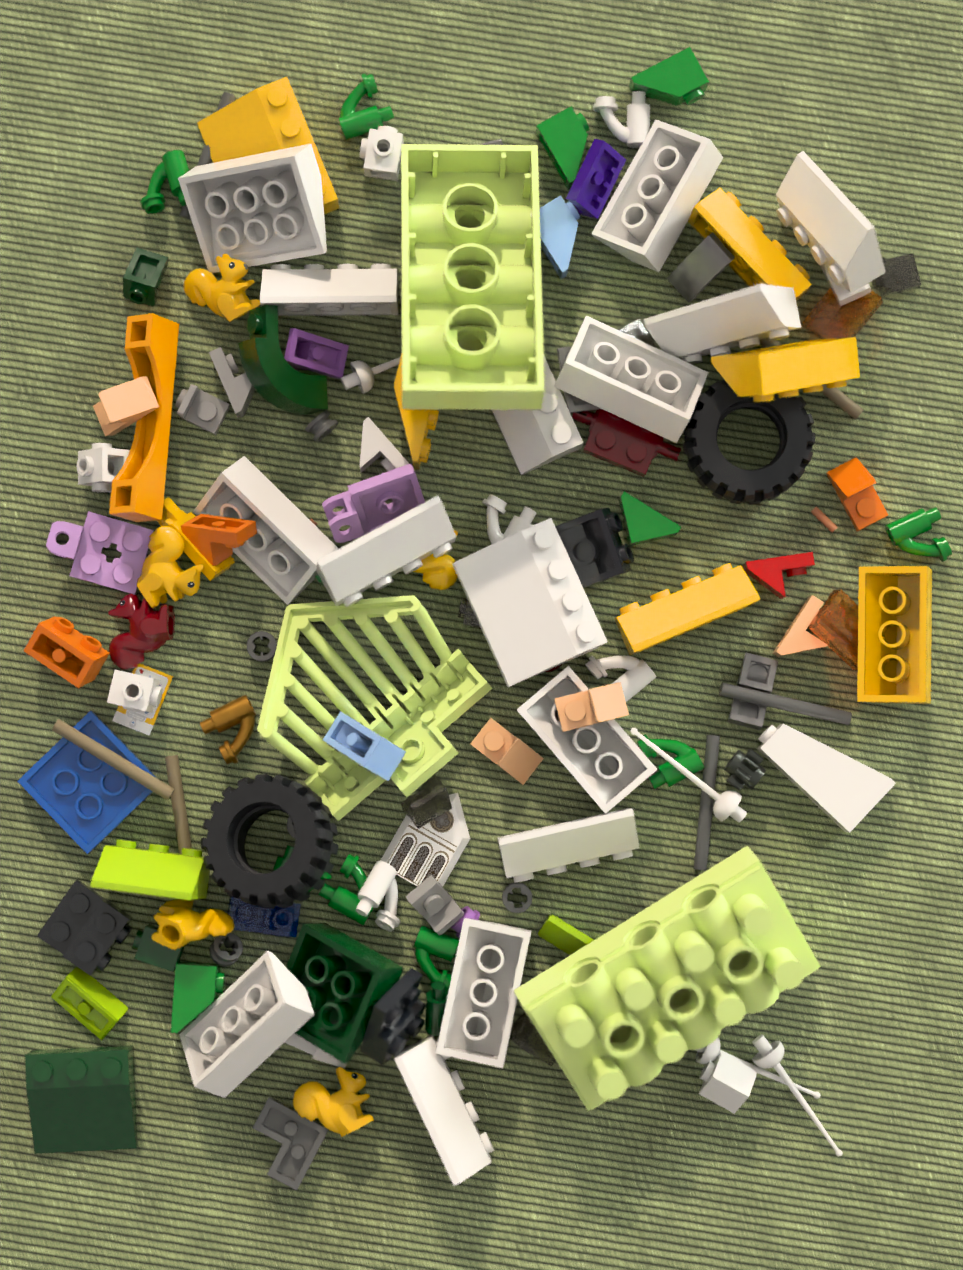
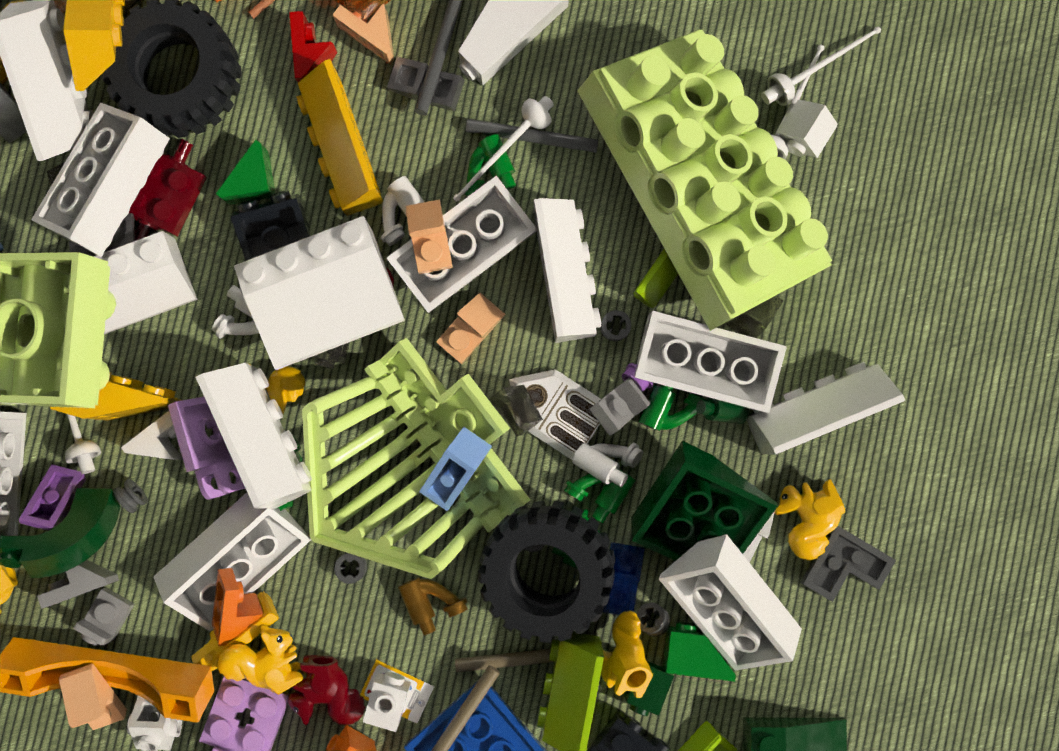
camera: 85 degrees left, 0 degrees up
(395, 1019) = (733, 452): black plate -> none
(745, 769) = (502, 94): pearl dark grey gear -> none

